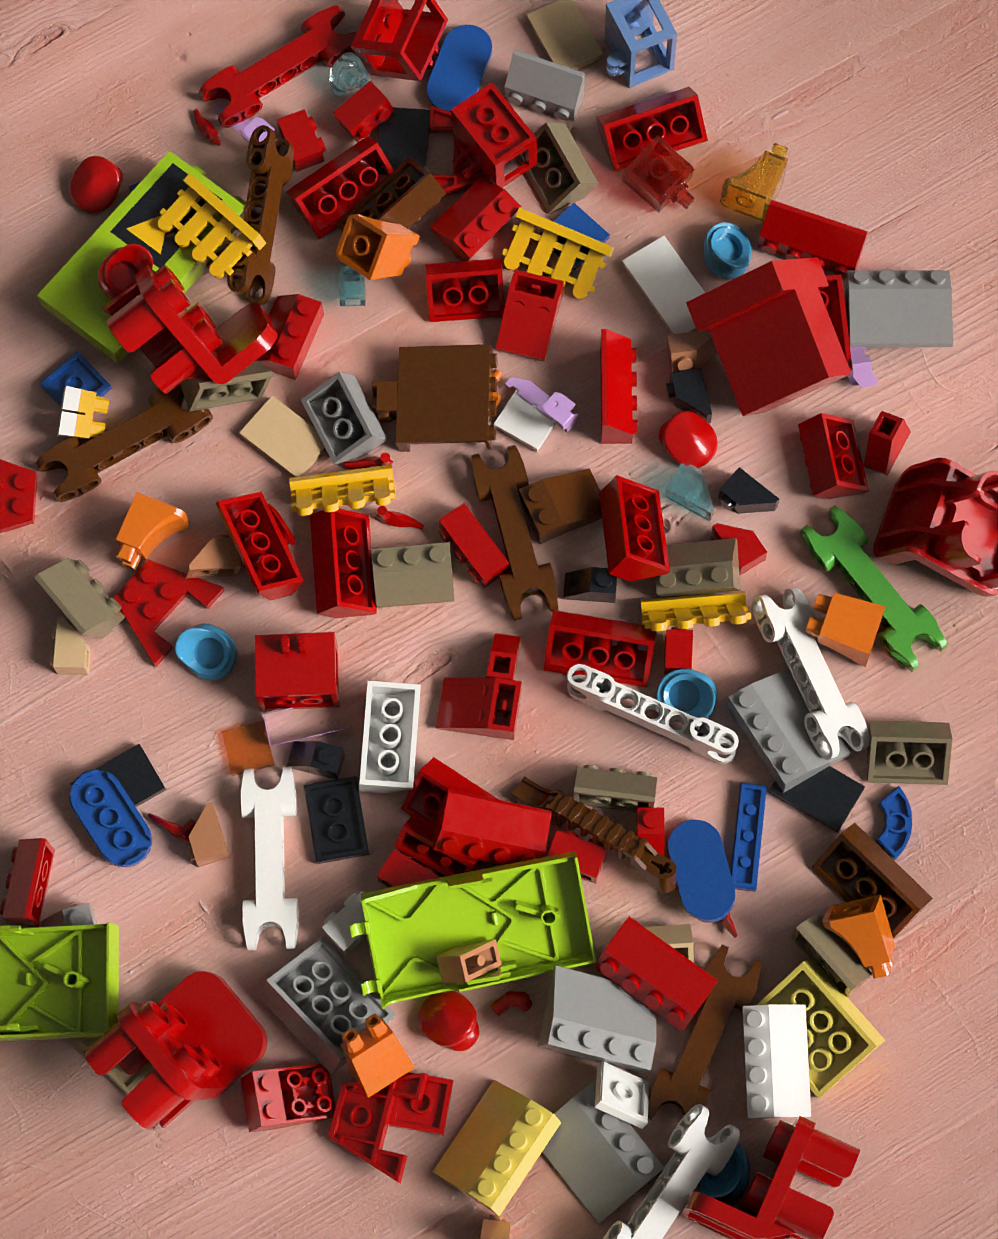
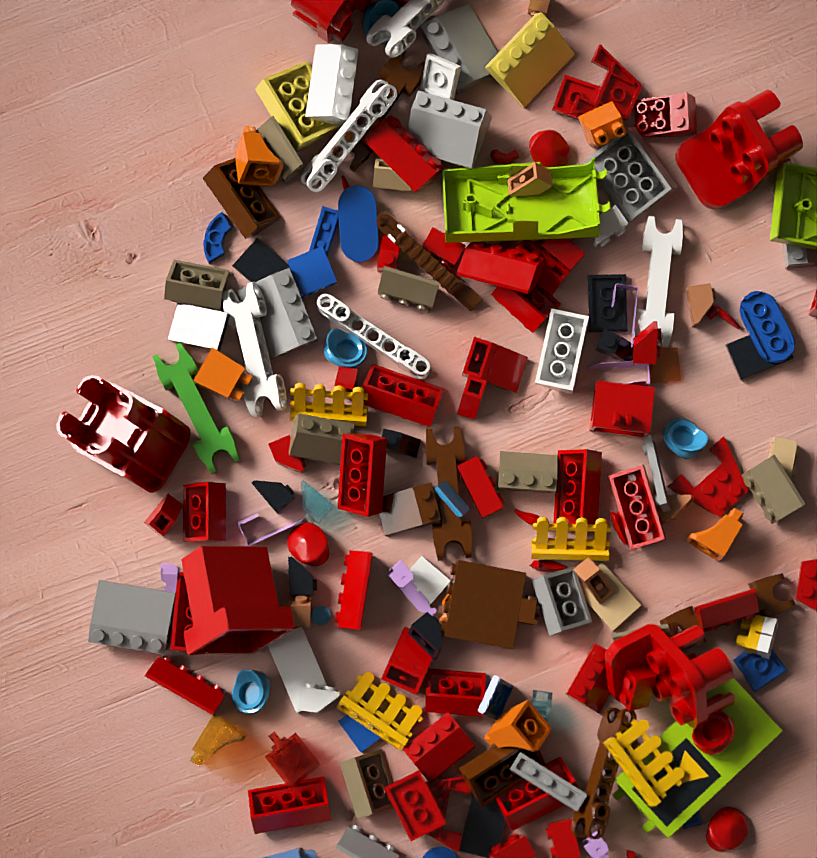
camera: 175 degrees left, 10 degrees up
(126, 432) = (727, 610): none -> red slope
(228, 559) = (650, 449): none -> light grey plate
(231, 313) = (637, 687): none -> red brick
(275, 760) = (645, 345): none -> red slope
(306, 448) = (594, 580): none -> nougat slope
(314, 838) = (613, 300): none -> lavender piece
(329, 189) = (548, 782): none -> light grey plate
(411, 285) = (495, 698): none -> blue tile
(508, 516) = (452, 499): none -> dark azure slope
(511, 349) = (427, 634): none -> black slope
(641, 249) = (316, 699): none -> white slope
(654, 358) = (321, 615): none -> dark azure piece
(712, 1020) = (372, 105): none -> white piece
(752, 791) = (312, 271): none -> blue slope
(776, 454) = (268, 535): none -> lavender piece
(892, 692) = (199, 326): none -> tile

